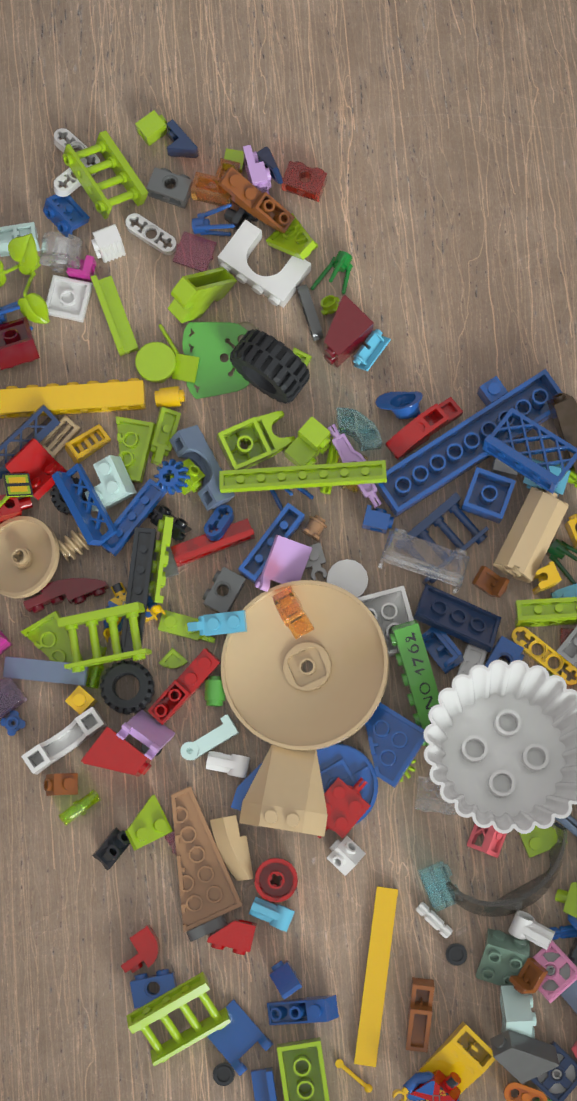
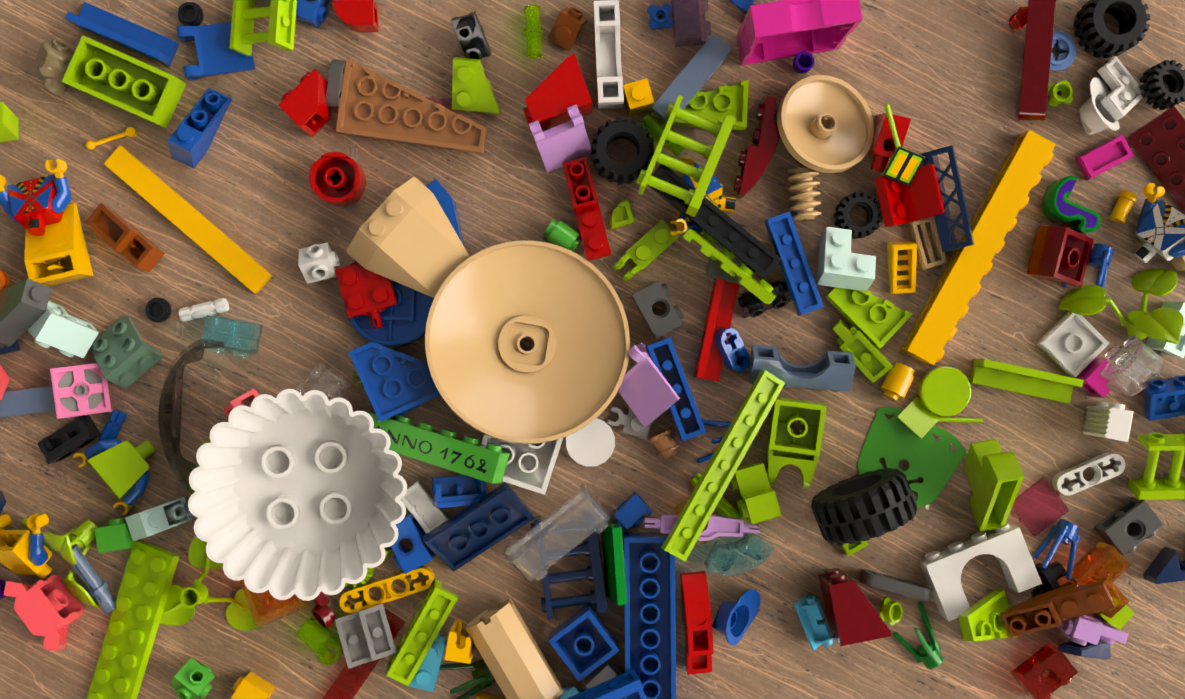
camera: 115 degrees right, 10 degrees up
(78, 508) = (842, 212): blue fence -> none
(169, 469) = (815, 321): blue gear -> none
(195, 749) = (517, 181): light aqua leg -> none
(196, 475) = (800, 346): lime brick -> none
(220, 623) = (625, 283): medium azure hinge -> none
(232, 764) = (477, 208): white piece -> none
(232, 847) = (397, 157): tan slope -> none
(276, 915) = (302, 158): medium azure piece -> none
(285, 978) = (235, 127): blue slope -> none
(292, 612) = (587, 361): clear orange brick -> none
(420, 508) = (614, 563): none -> green tile
(490, 582) = (494, 584): dark orange bracket -> none
(525, 927) = (138, 393): white piece -> none
(529, 977) = (85, 364): dark orange bracket -> none

